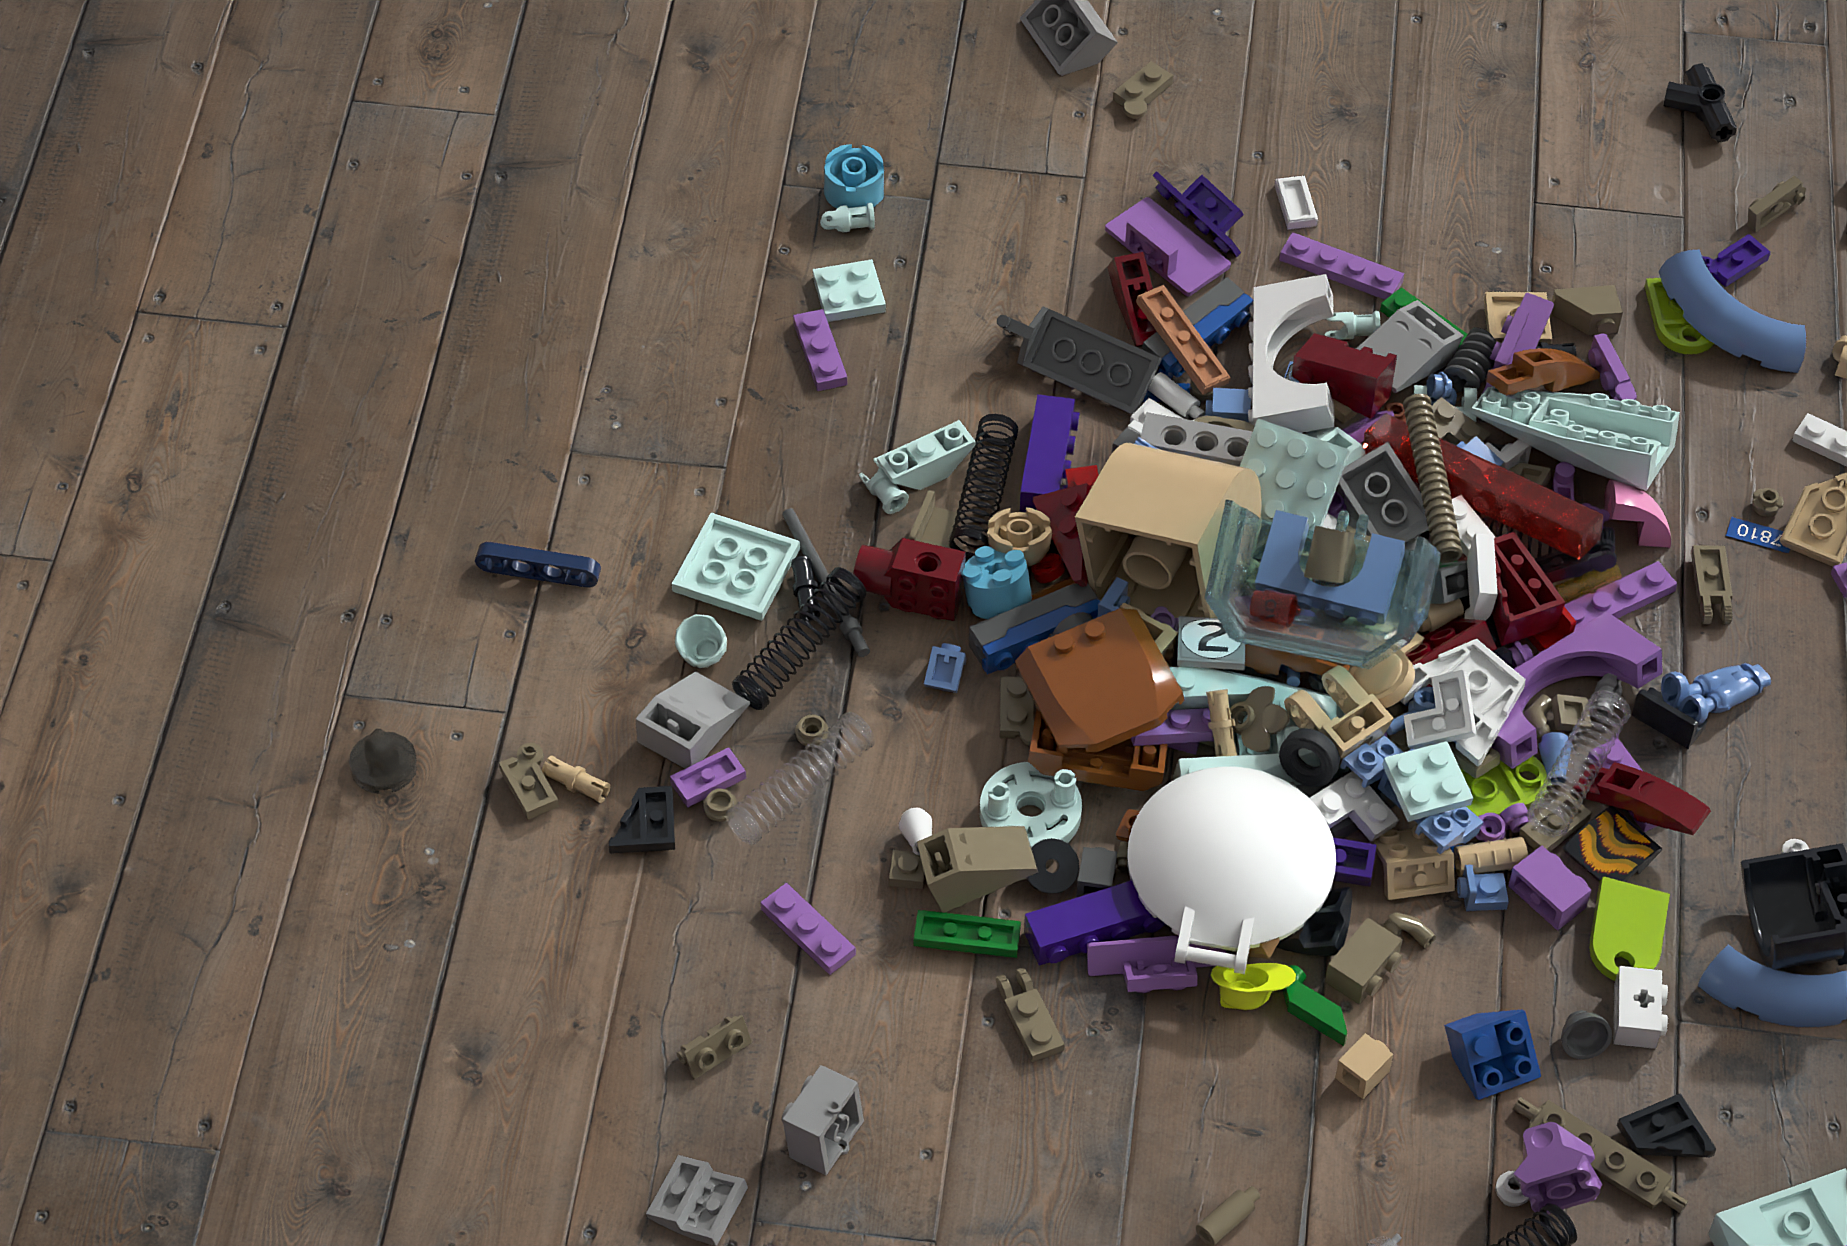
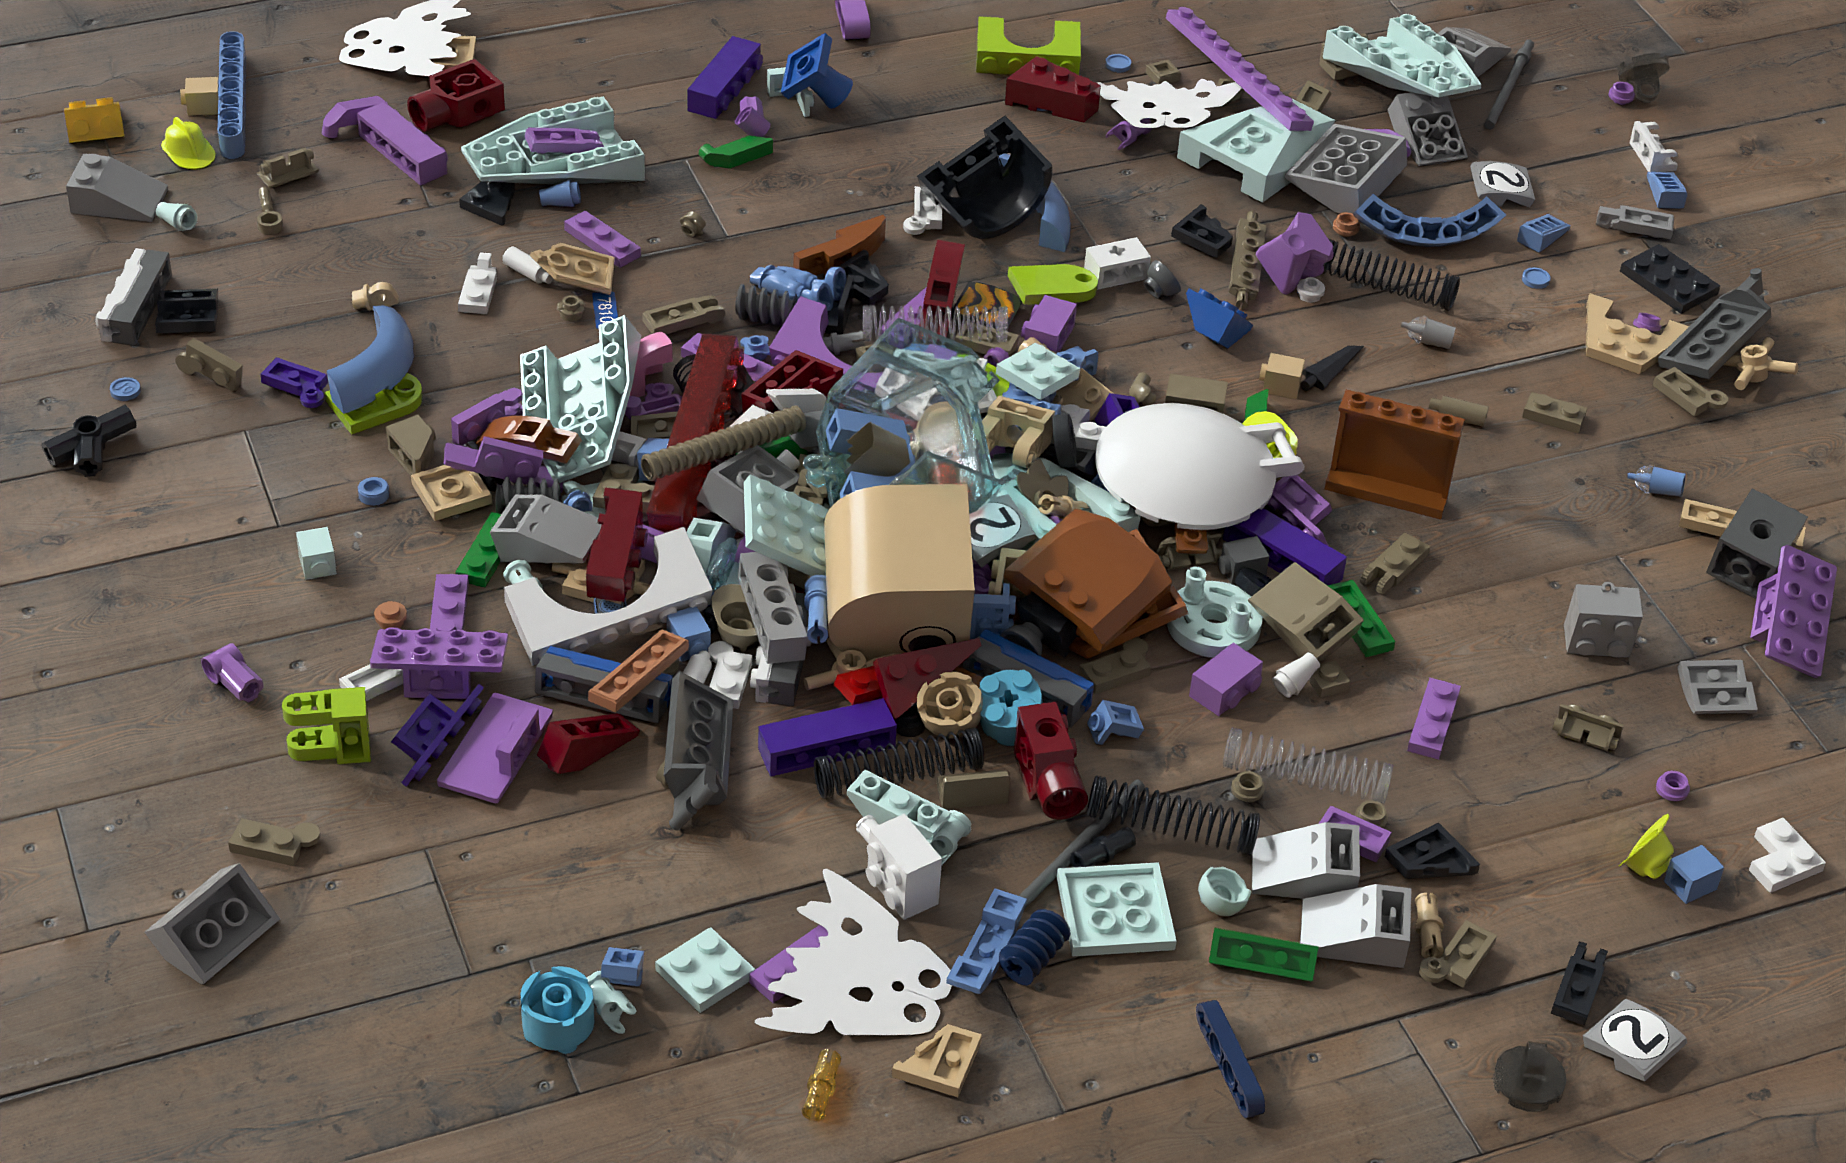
camera: 120 degrees left, 10 degrees down
(362, 855) = (1635, 1039): none -> slope
(442, 851) = (1579, 986): none -> black hinge
(461, 1121) = (1789, 857): none -> white plate
(490, 1012) = (1694, 874): none -> medium blue brick
(531, 986) = (1652, 851): none -> neon yellow piece
(597, 718) = (1360, 924): none -> light grey slope
(598, 1064) = (1673, 786): none -> medium lavender plate
(622, 640) = (1263, 954): none -> green plate
(660, 388) = (942, 1061): none -> tan wing
(690, 311) = (821, 1085): none -> clear yellow pin
(727, 485) = (1033, 946): none -> dark blue piece
(749, 462) = (981, 958): none -> medium blue slope
(789, 374) = (861, 960): none -> white piece
(861, 427) = (901, 864): none -> white brick
(869, 226) = (623, 966): none -> medium blue bracket
(946, 777) = (1226, 679): none -> medium lavender brick
(1147, 1041) = (1394, 454): none -> dark orange panel
(1231, 139) = (344, 740): none -> lime brick
(1288, 230) = (438, 659): none -> medium lavender bracket
(1353, 110) = (229, 668): none -> medium lavender piece
(1365, 1127) = (1327, 369): none -> black bar
(1369, 232) = (390, 615): none -> nougat plate
(1469, 202) = (316, 553): none -> light aqua brick
(1547, 272) = (373, 491): none -> medium blue tile
(1641, 619) = (756, 346): none -> medium blue plate
(1694, 646) = (763, 306): none -> dark grey piece
(1713, 758) = (868, 283): none -> black wing
(1768, 765) = (848, 242): none -> dark orange slope
(1782, 152) = (125, 389): none -> medium blue piece

